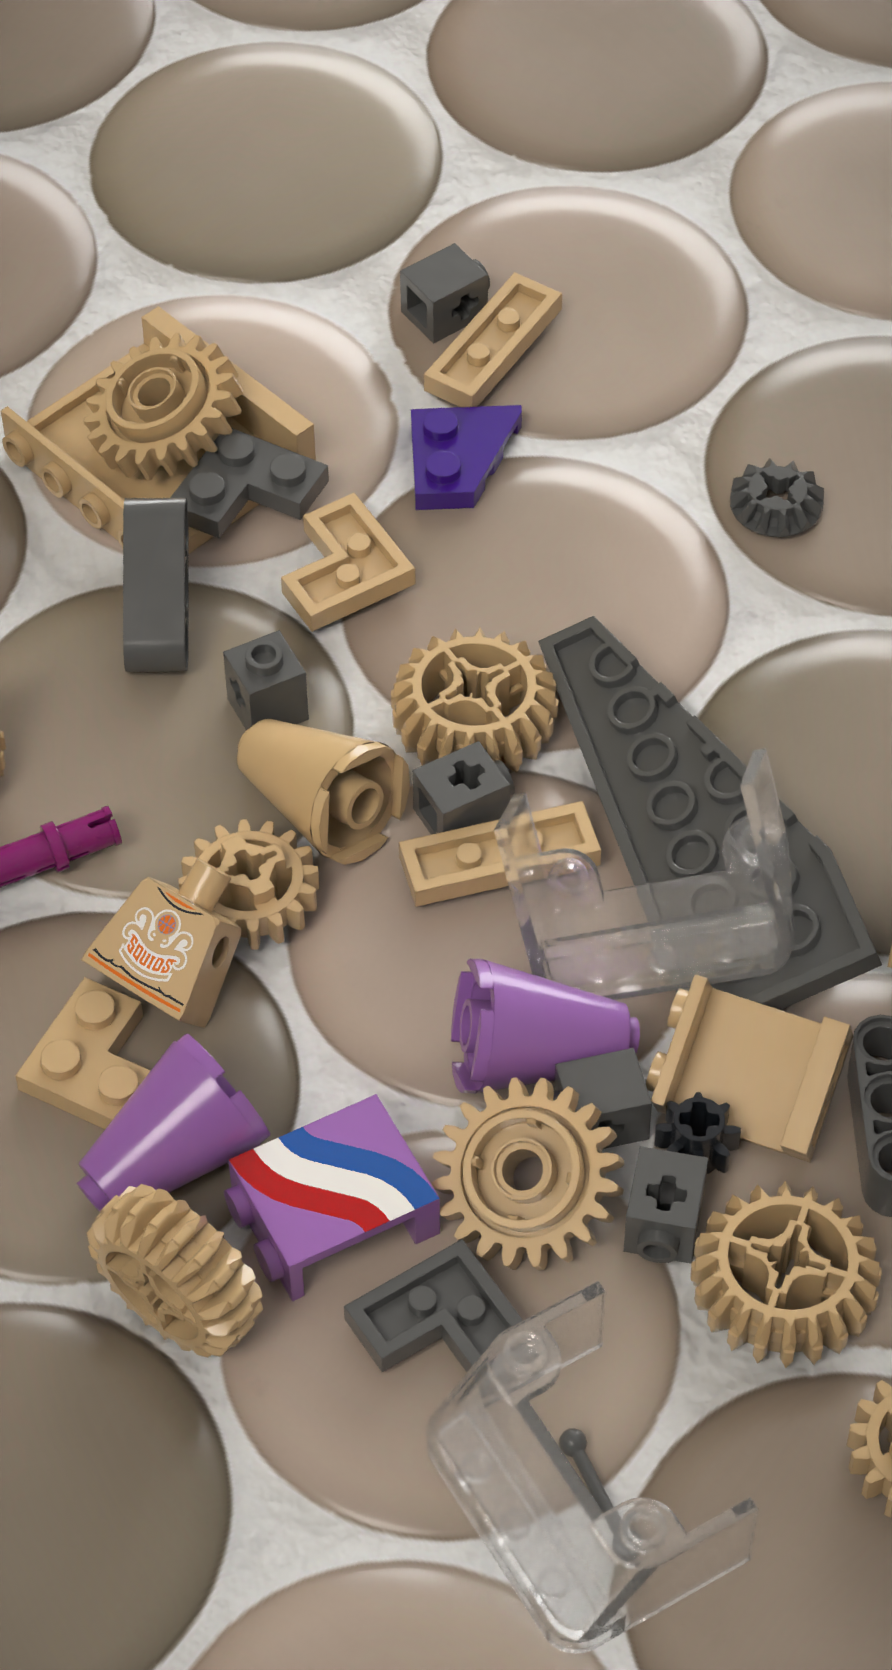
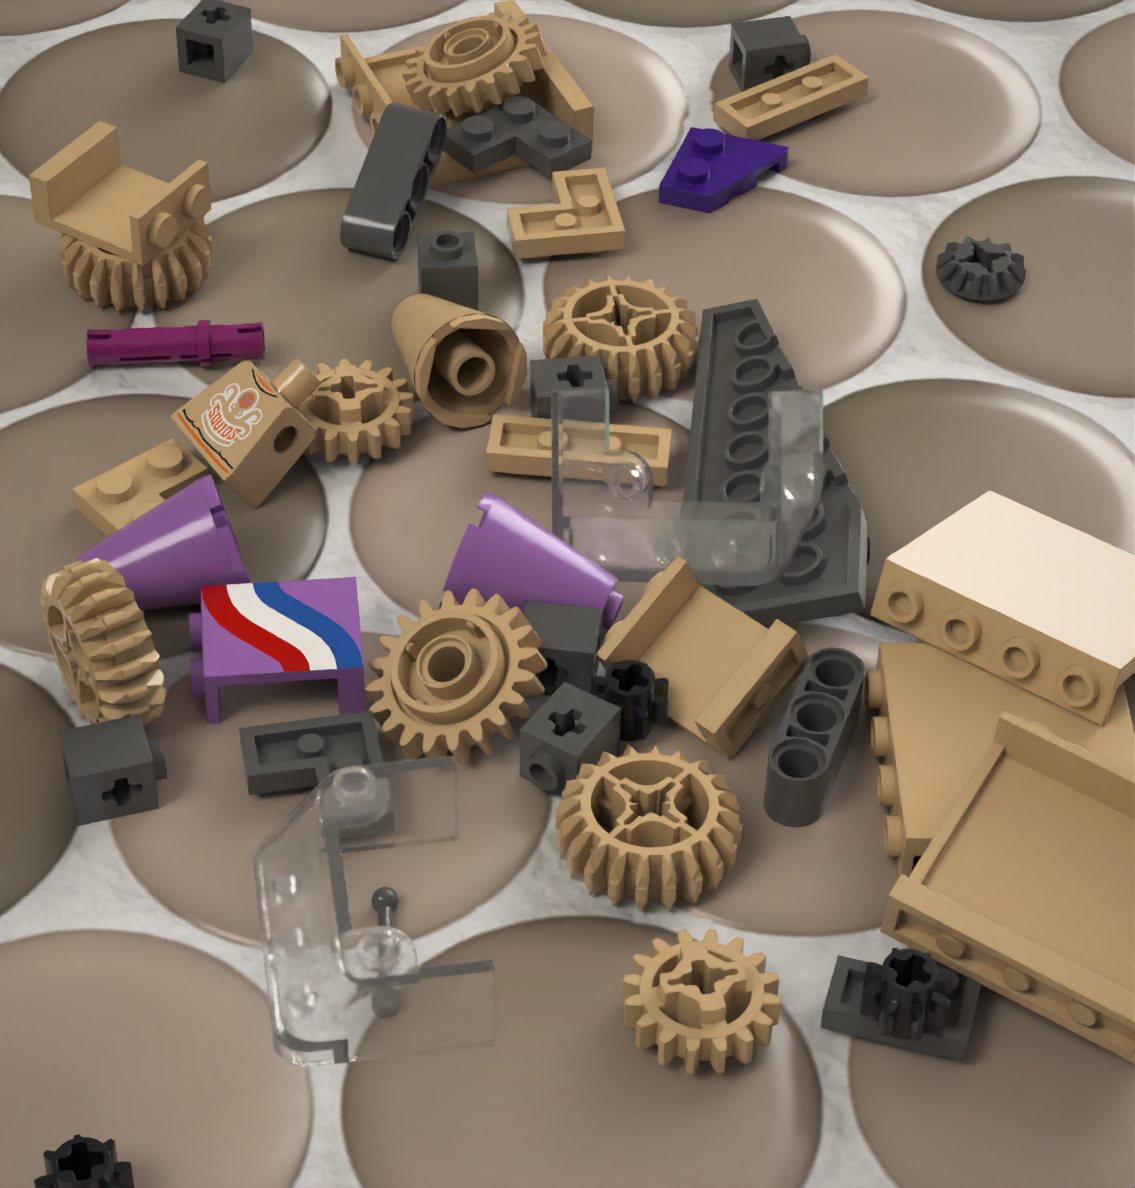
camera: 20 degrees right, 10 degrees down
(241, 1398) = (111, 769): none -> dark grey brick

